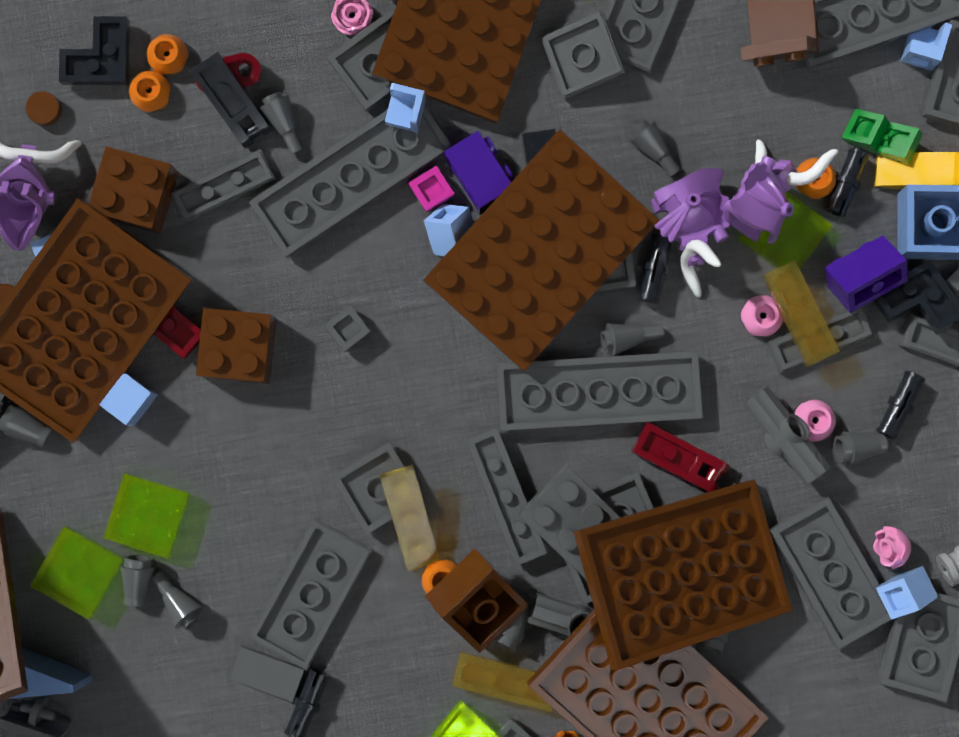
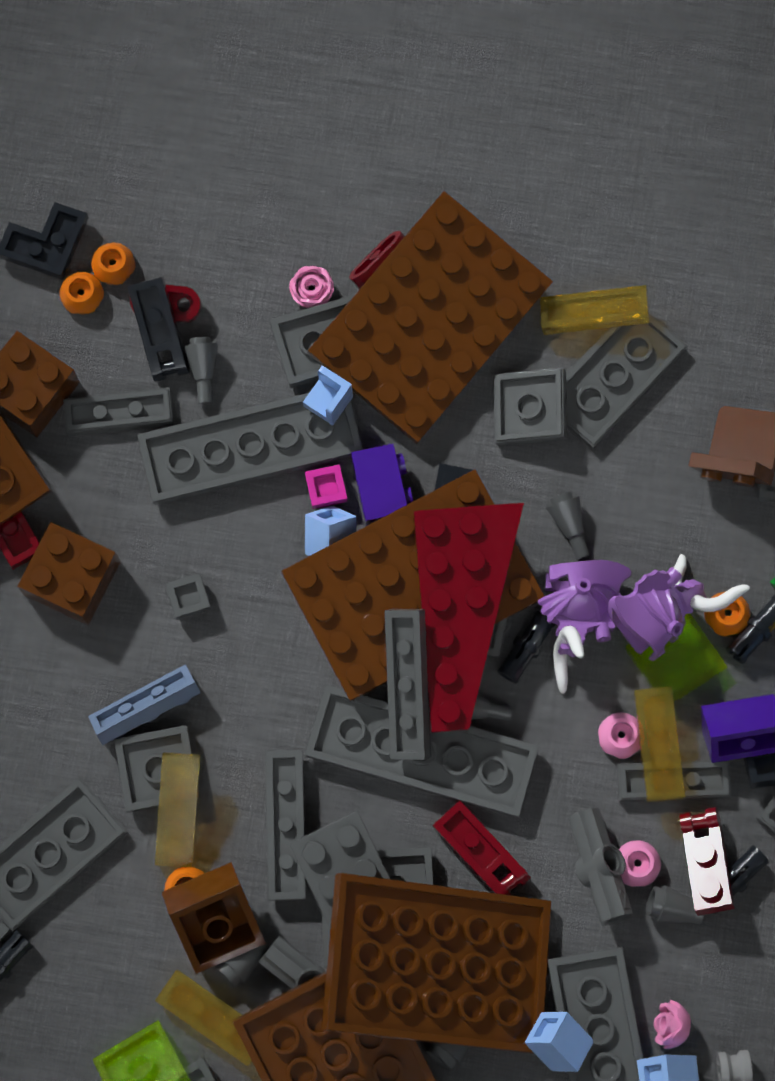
camera: 25 degrees right, 10 degrees down
(345, 437) = (144, 705): none -> sand blue plate
(570, 340) = (407, 684): none -> dark grey plate
(585, 235) = (461, 583): none -> dark red wing
(806, 596) = (559, 1041): none -> light blue panel
(875, 400) = (707, 862): none -> plate

